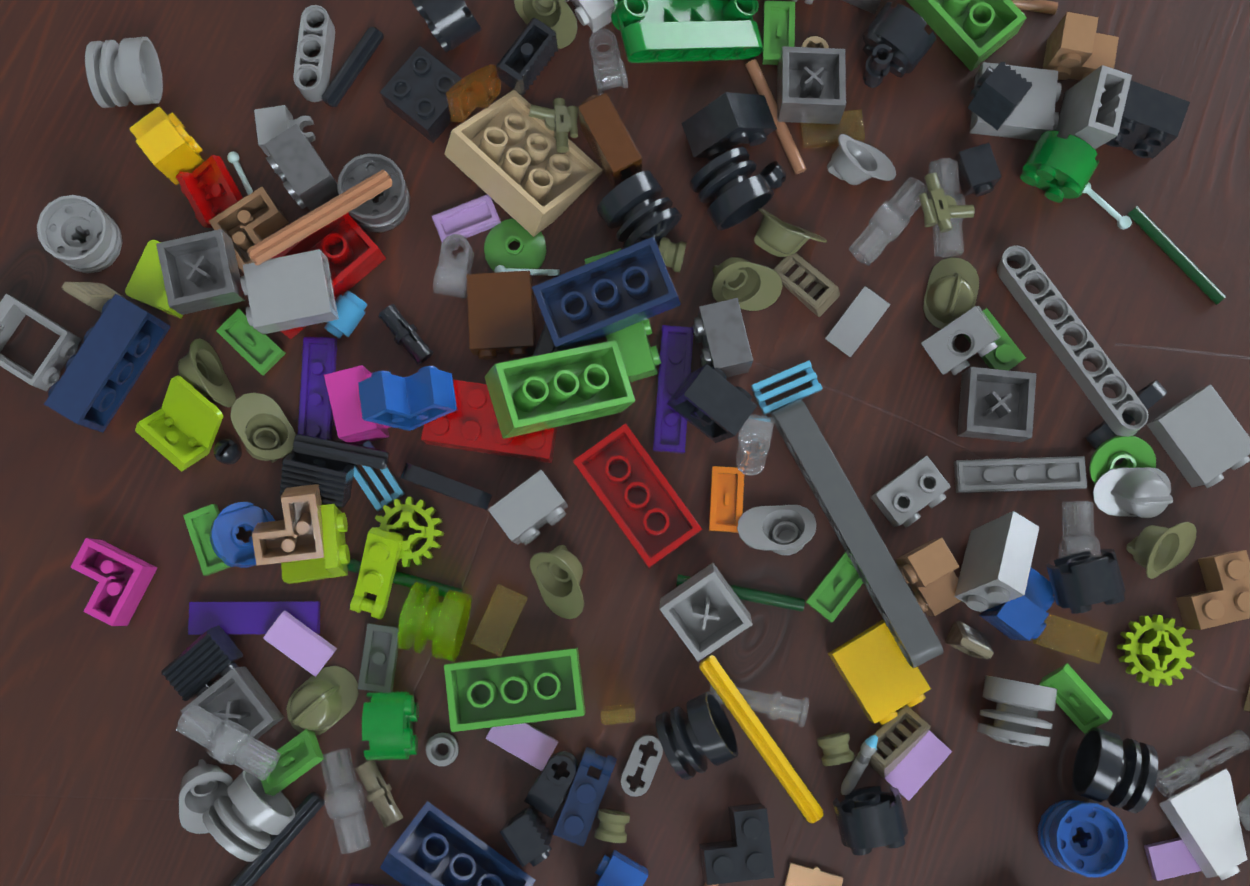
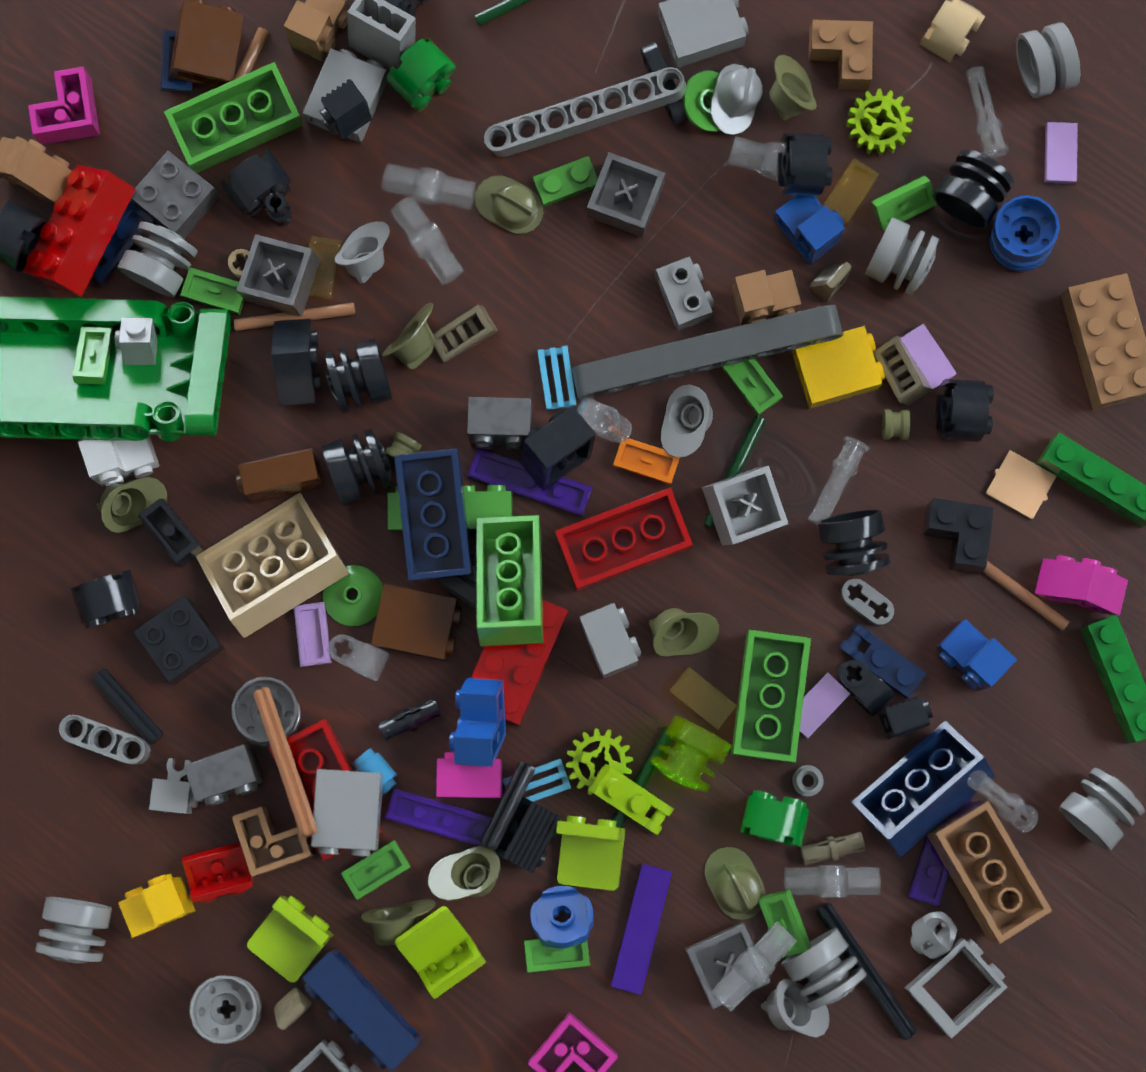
camera: 80 degrees left, 0 degrees up
(200, 272) = (305, 890): flat silver brick -> none
(202, 663) = (673, 984): black brick -> none
(231, 455) = (481, 915): black hinge -> none
(233, 157) = (185, 846): light aqua hinge -> none
(297, 535) = (579, 862): medium nougat brick -> none
(299, 643) = (677, 888): lavender tile -> none
(379, 658) = (709, 817): dark grey plate -> none
(446, 486) = (565, 716): black beam -> none
(473, 91) = (194, 590): clear orange slope -> none
(547, 272) = (372, 613): light aqua hinge -> none
(560, 120) = (240, 519): olive piece -> none
(607, 66) = (199, 460): clear piece -> none
(612, 825) = (914, 641): olive wheel -> none
(618, 714) = (817, 607): clear yellow tile -> none
(751, 283) = (450, 389): olive piece -> none
(761, 739) = (870, 487): yellow axle -> none
(774, 174) = (351, 334): black hinge -> none
(857, 321) = (513, 296): light grey slope -> none
(860, 763) = (915, 407): light grey piece -> none
(941, 208) = (431, 191): olive piece -> none
(942, 344) = (547, 194): light grey brick -> none
(977, 170) = (402, 147): black brick -> none
(997, 562) = (768, 236): light grey brick -> none
(1020, 474) = (693, 192): light grey tile -> none
(1122, 222) = (486, 31): light aqua hinge -> none
(1209, 824) = (1039, 123): white slope -> none

